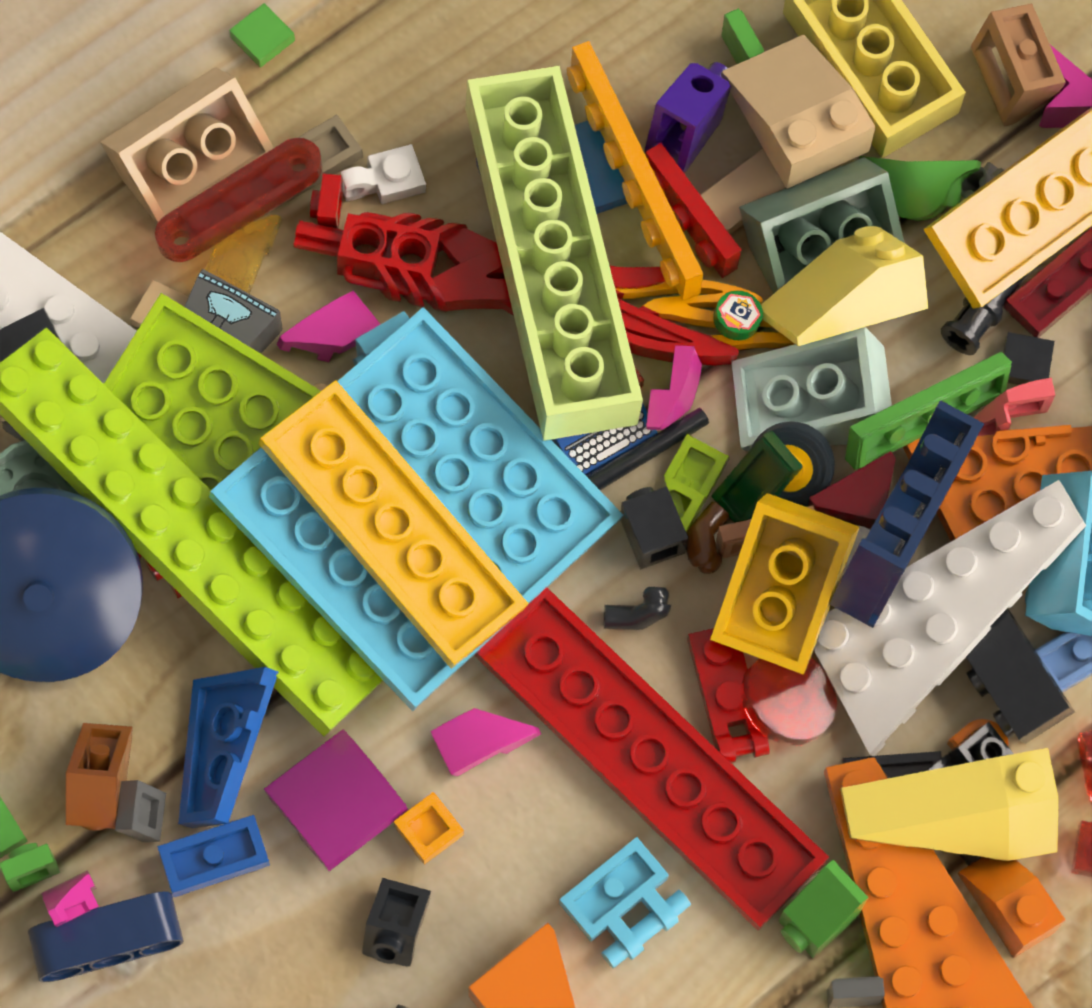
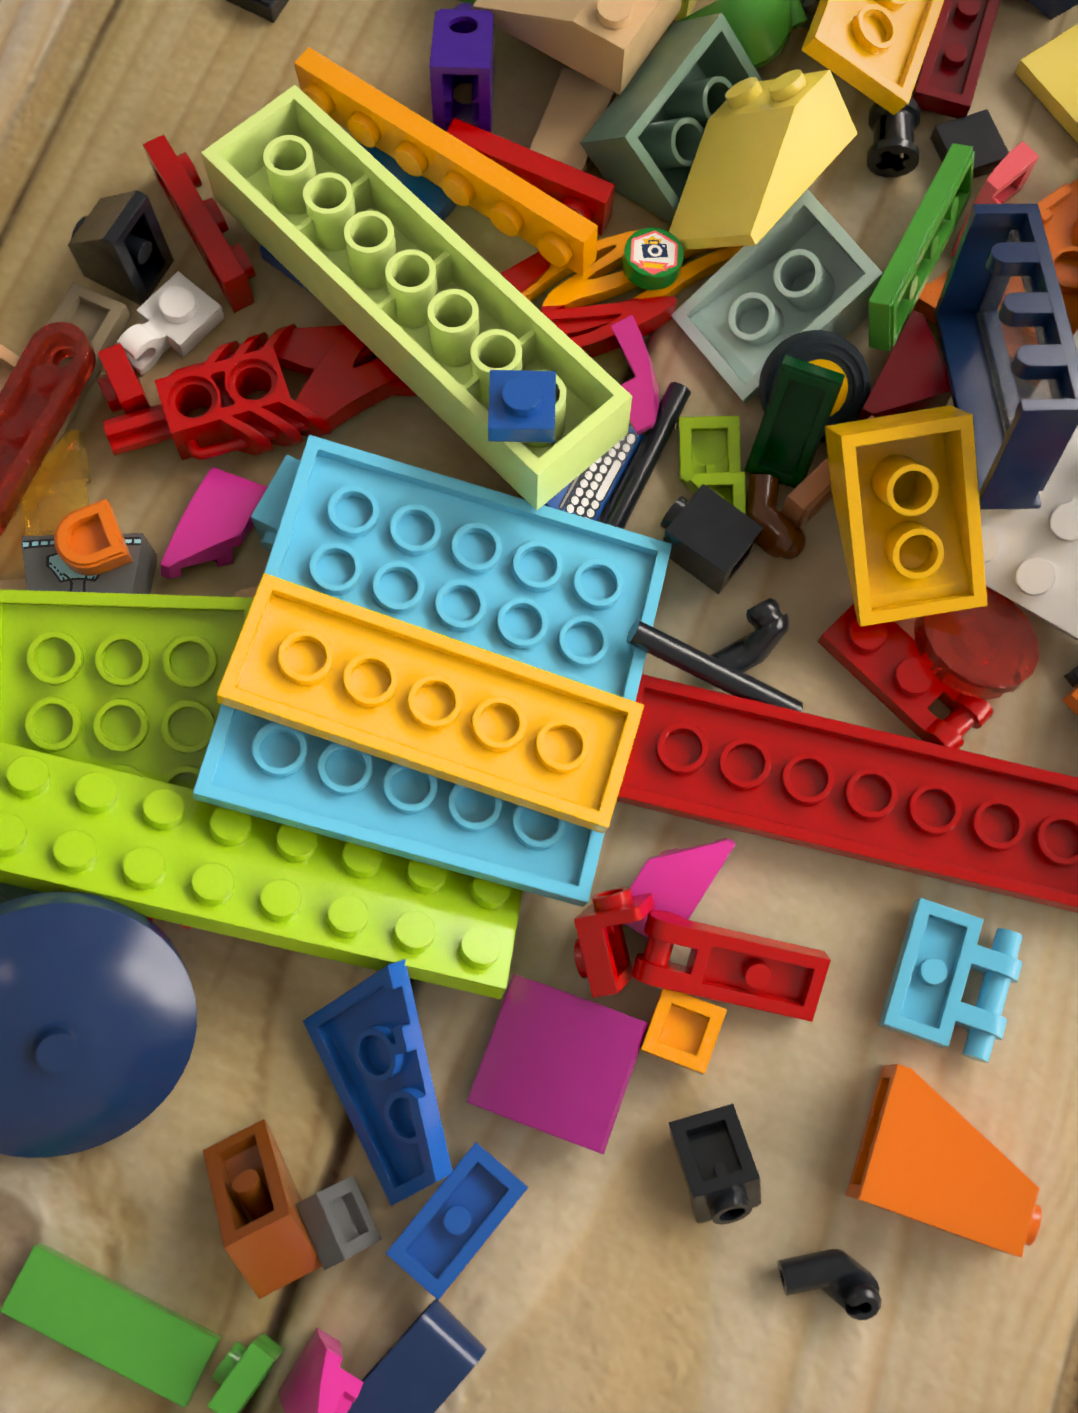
camera: 30 degrees left, 5 degrees up
(244, 297) = (91, 540): none -> orange tile
(382, 108) = (122, 246): none -> black slope
(411, 741) = (601, 943): none -> red bracket
(448, 120) = (202, 222): none -> red plate
(485, 806) = (732, 966): none -> red plate
(564, 366) = (522, 406): none -> blue plate
(594, 610) = (707, 667): none -> black bar

